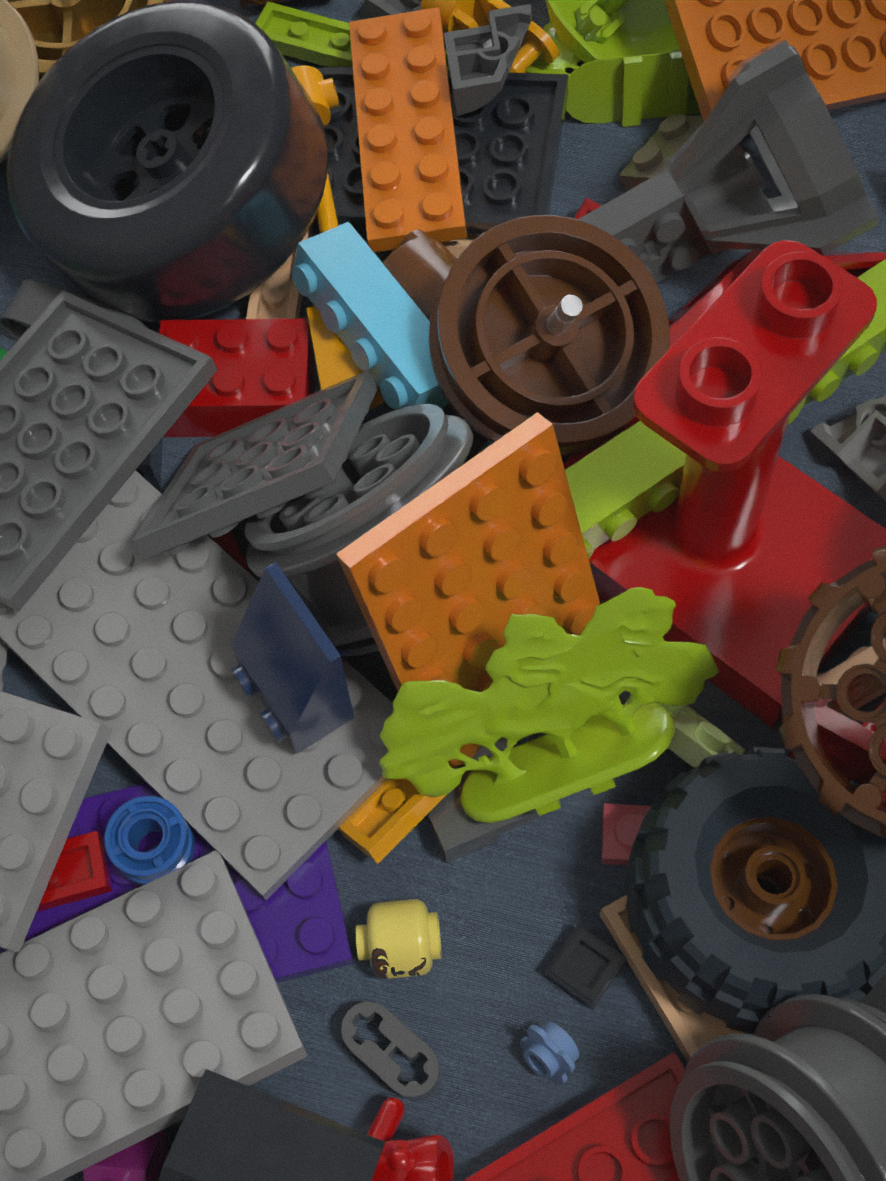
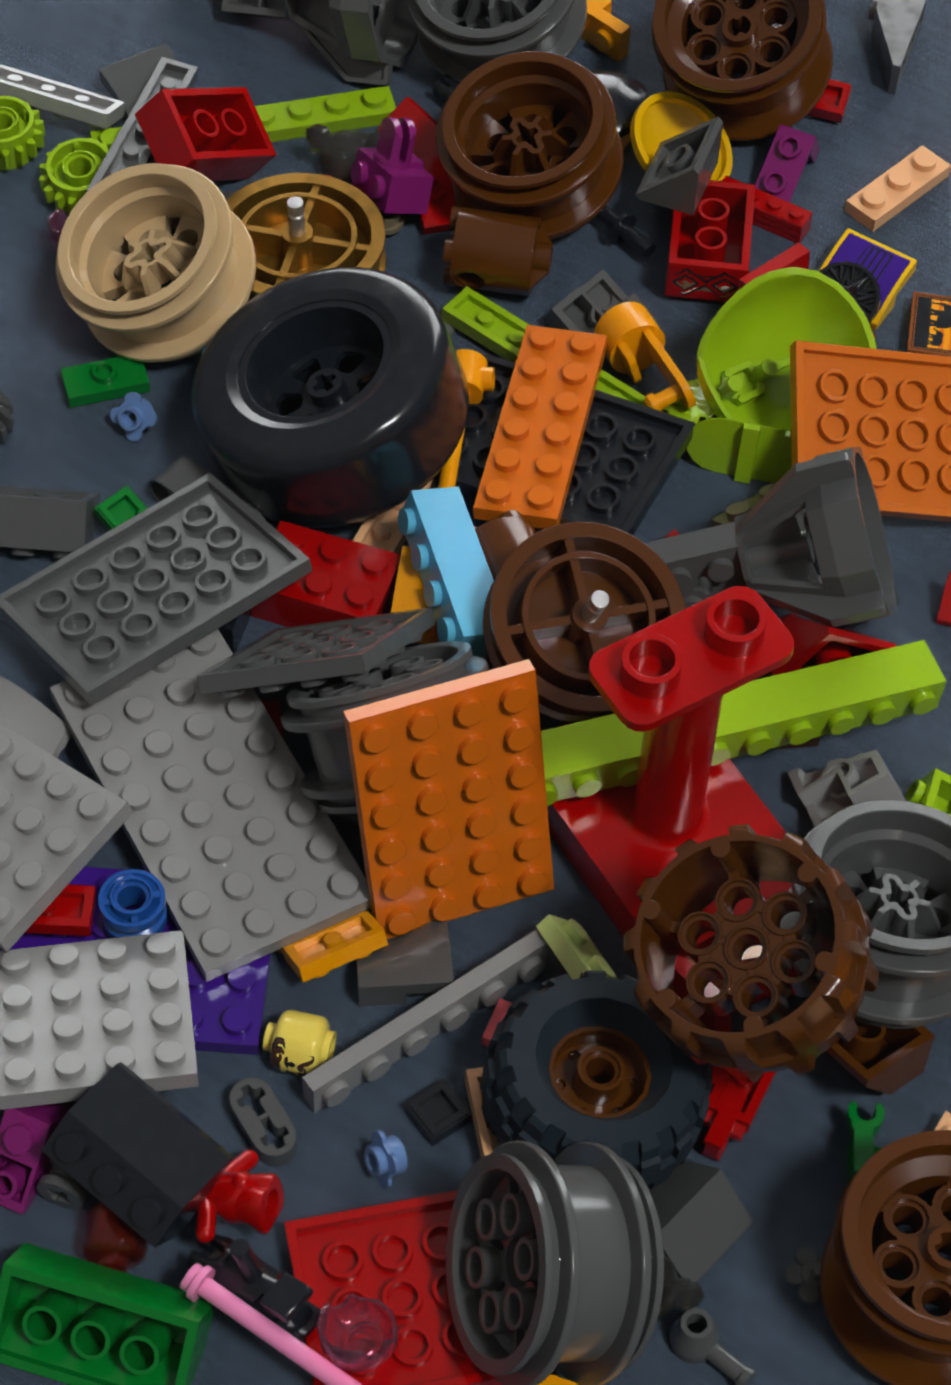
camera: 10 degrees right, 10 degrees down
(290, 665) = (286, 804): dark blue slope -> none
(483, 56) = (626, 386): dark grey slope -> none
(518, 888) = (416, 1027): none -> light grey plate
(554, 688) = (478, 877): lime plant -> none

